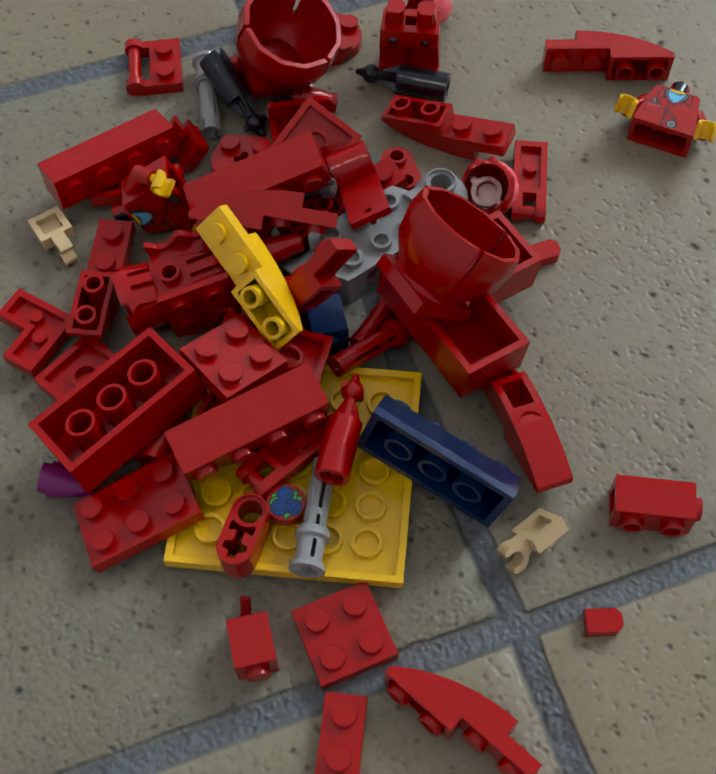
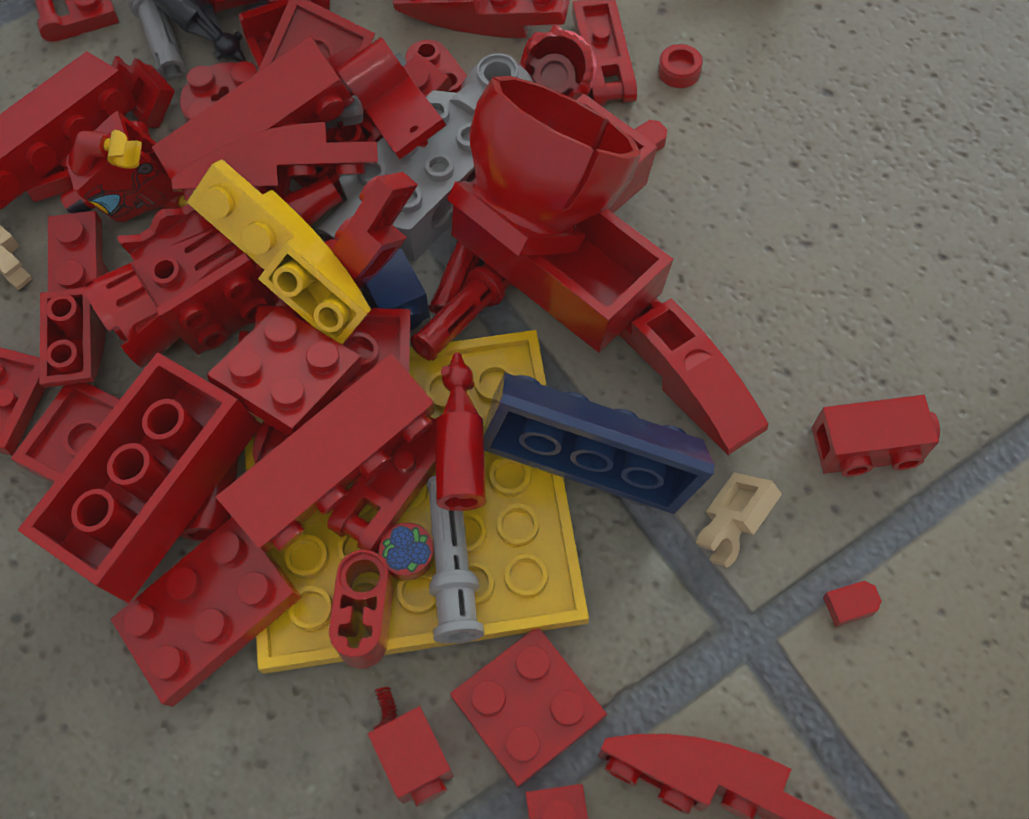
camera: 15 degrees left, 5 degrees up
(58, 483) = (79, 597): magenta cone -> none
(585, 204) = (680, 66): none -> red tile

